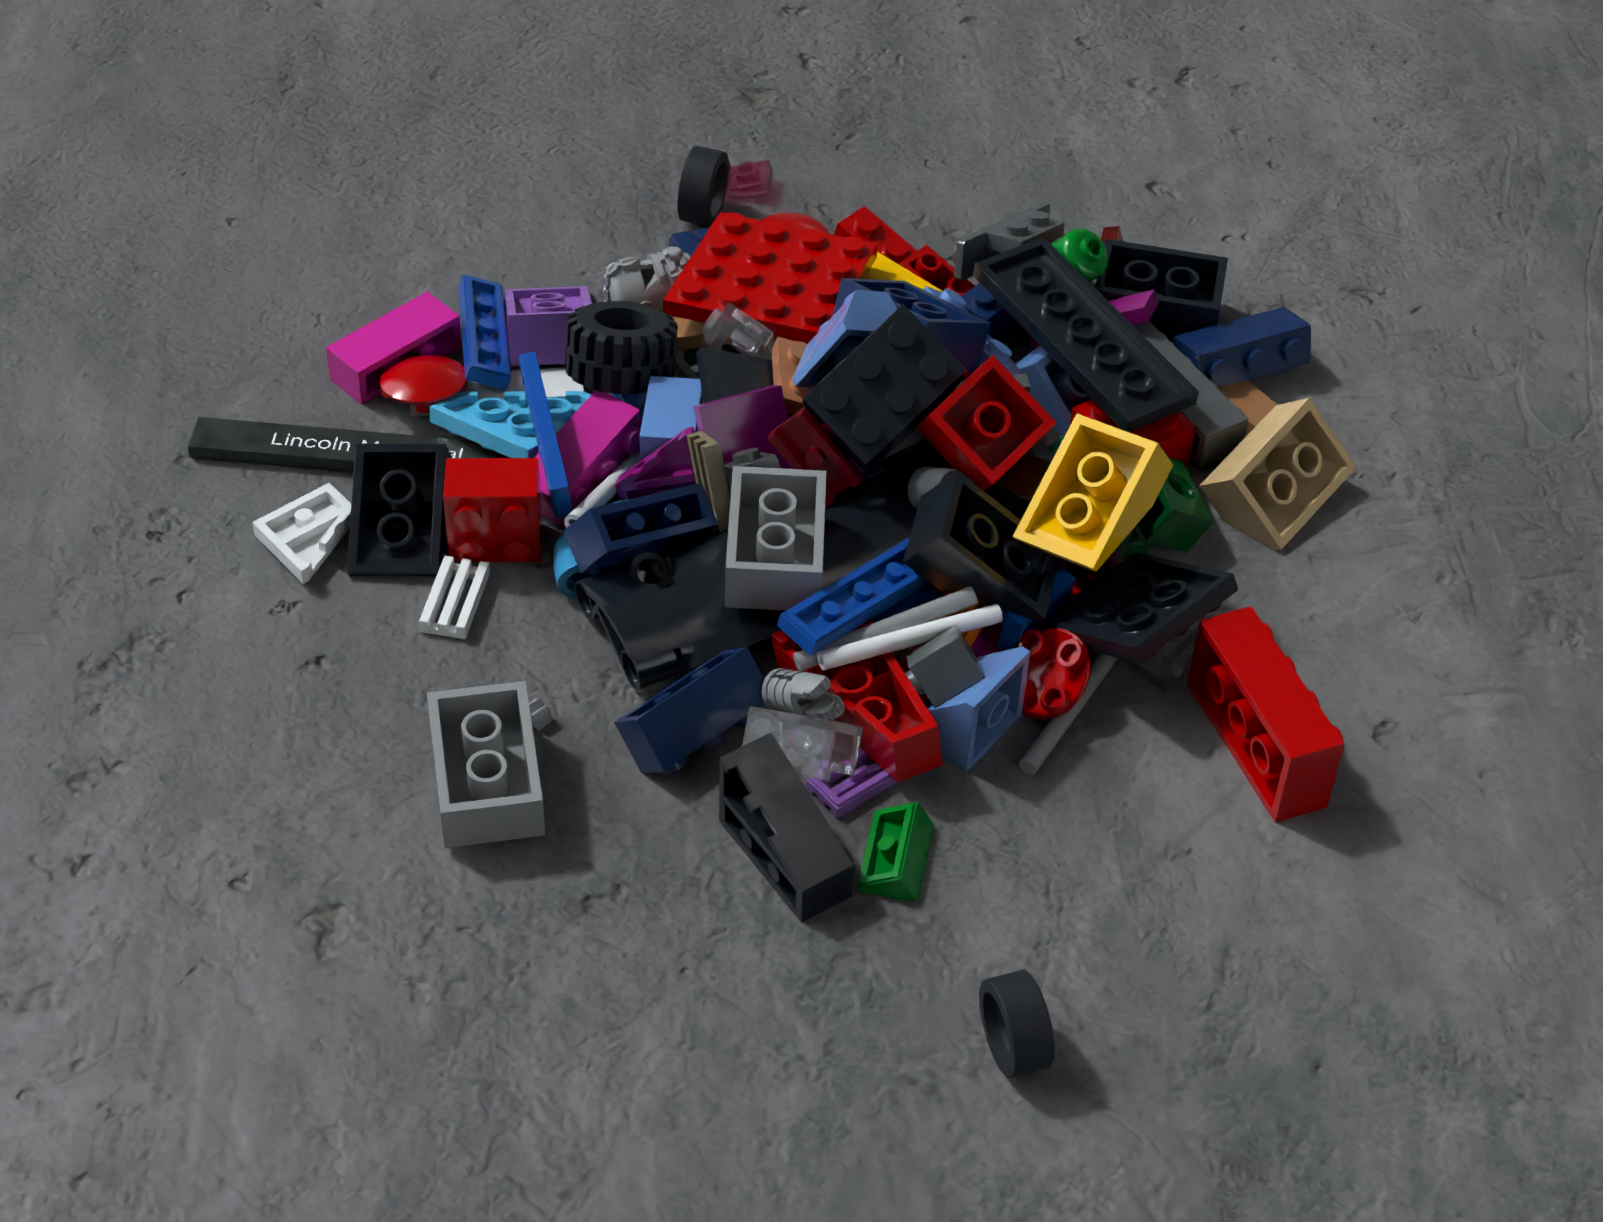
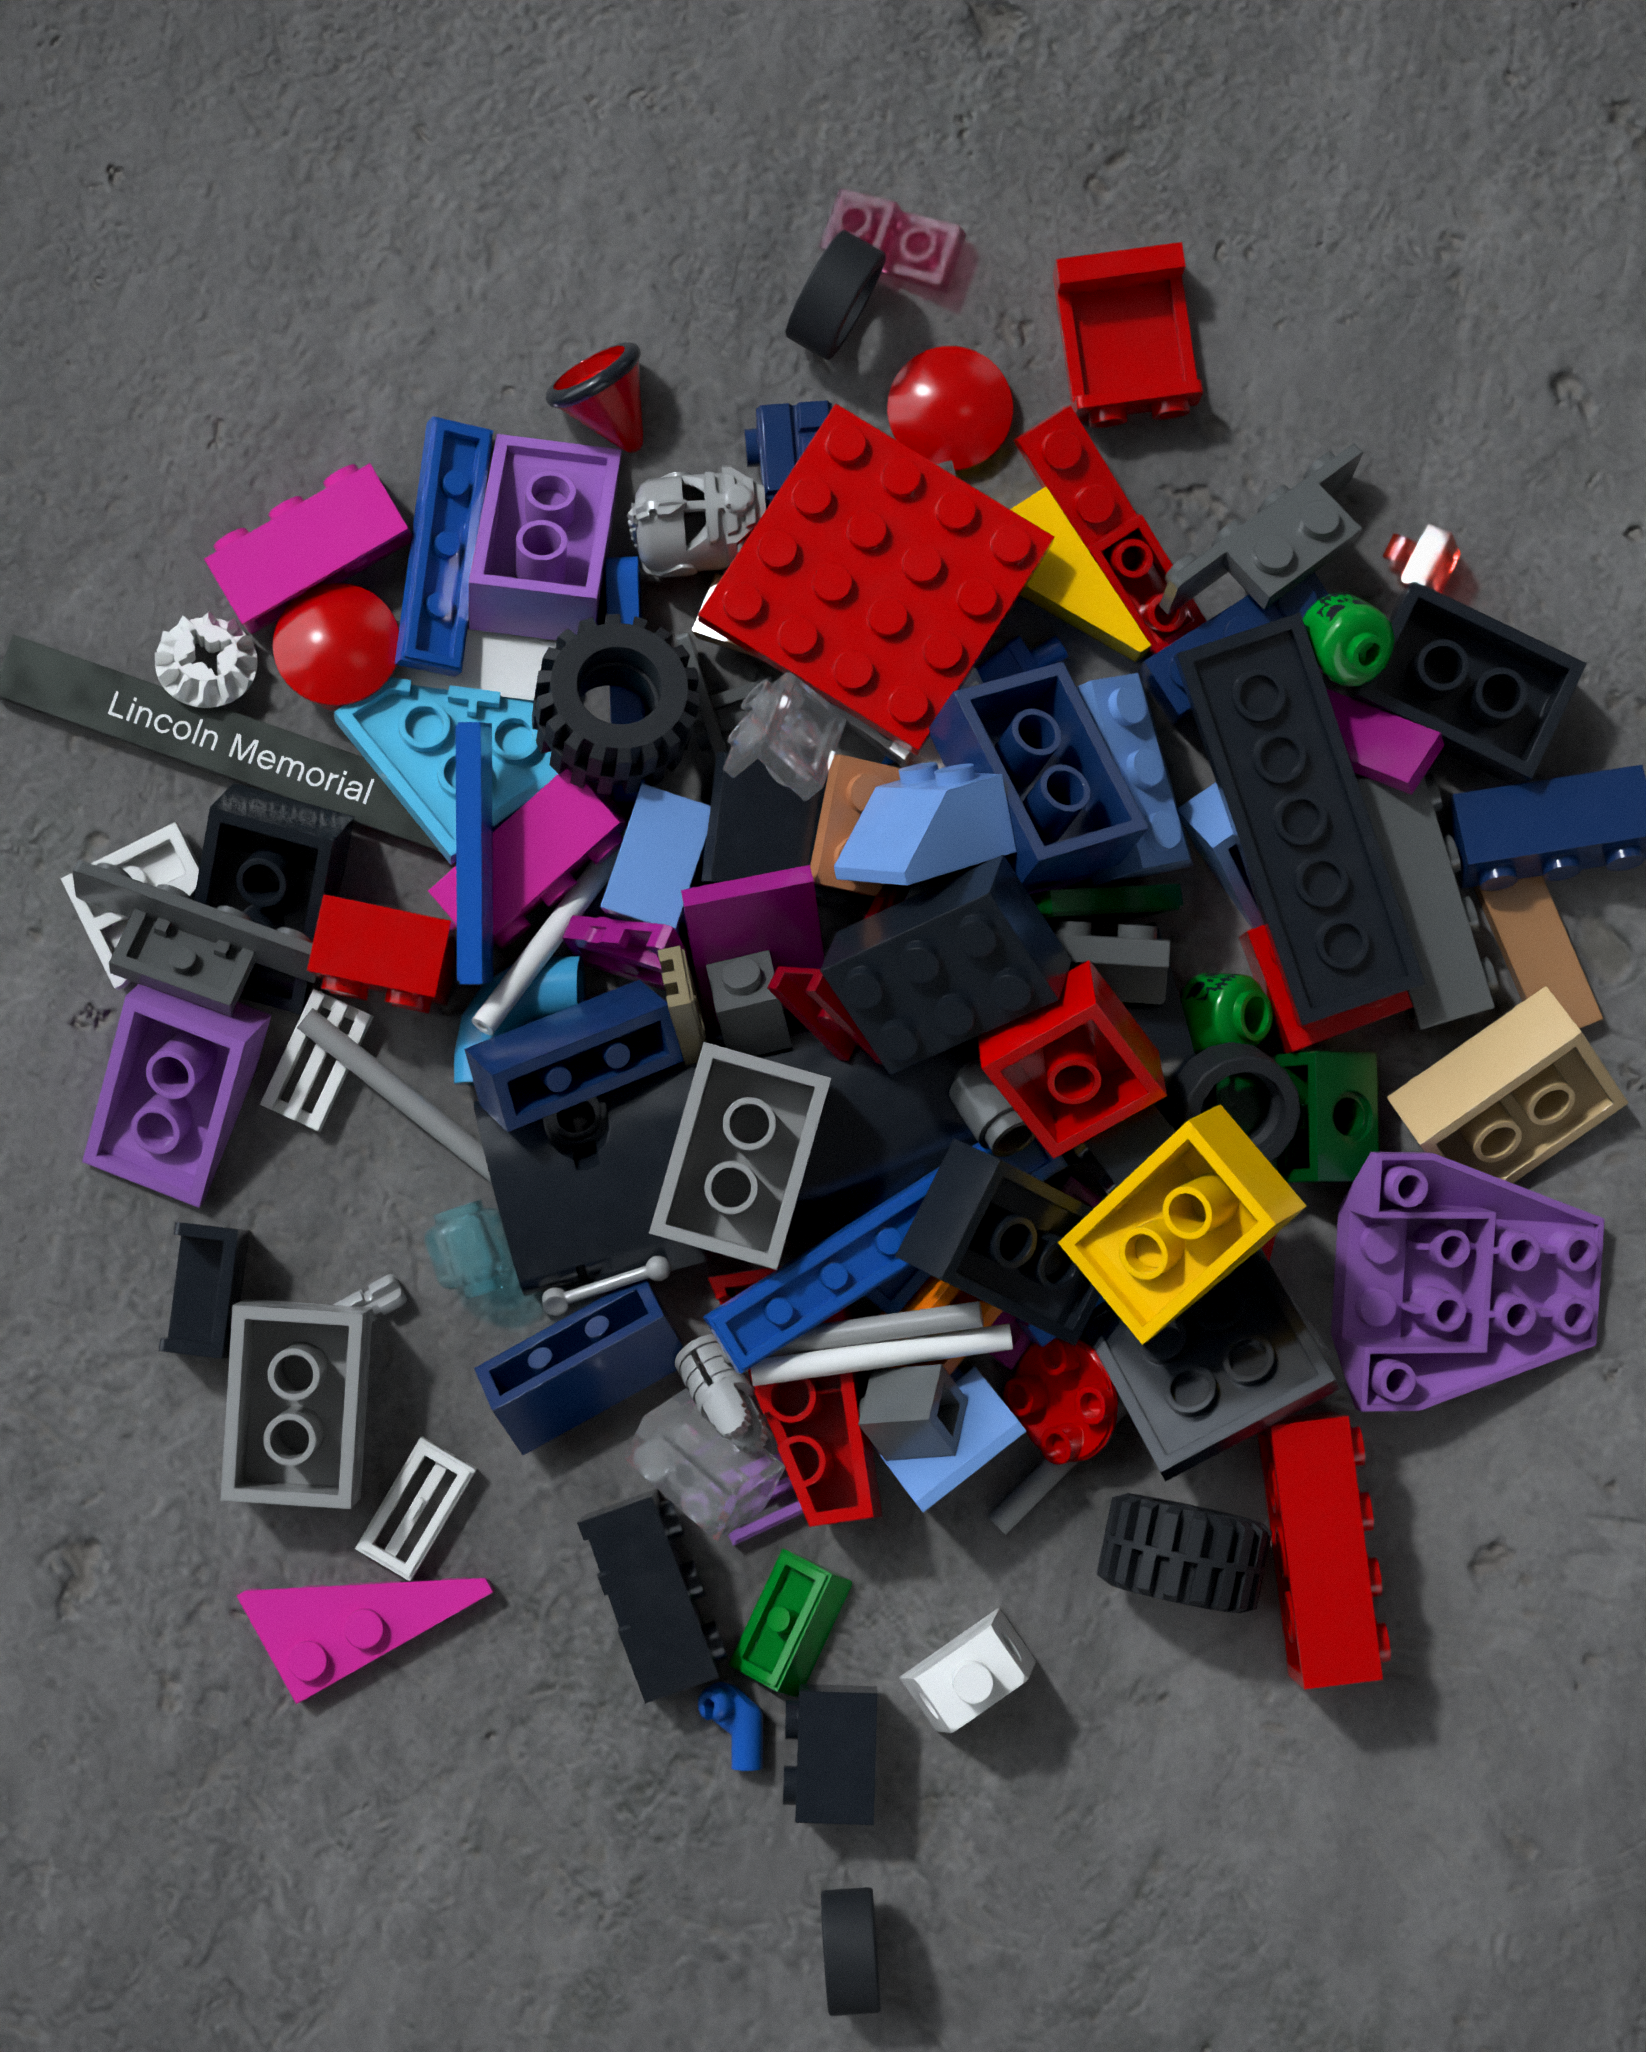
camera: 15 degrees right, 40 degrees up
(334, 408) = (195, 682): none -> white gear
(353, 519) = (185, 944): none -> dark grey bracket
(354, 616) = (173, 1092): none -> medium lavender slope
(399, 722) = (205, 1289): none -> black panel
(523, 598) = (395, 1090): none -> light grey bar
(546, 918) = (333, 1630): none -> dark pink wing
(570, 254) = (604, 395): none -> red hat
(578, 863) = (444, 1461): none -> white tile
(592, 665) = (469, 1249): none -> clear light blue head
(665, 676) = (556, 1300): none -> light grey hinge
(875, 913) = (740, 1718): none -> blue arm
(887, 185) = (1126, 334): none -> red panel
(957, 907) = (833, 1754): none -> black brick
(1048, 825) = (970, 1673): none -> white torso
(1169, 723) = (1184, 1553): none -> black tyre
(1289, 557) = (1455, 1281): none -> medium lavender wedge

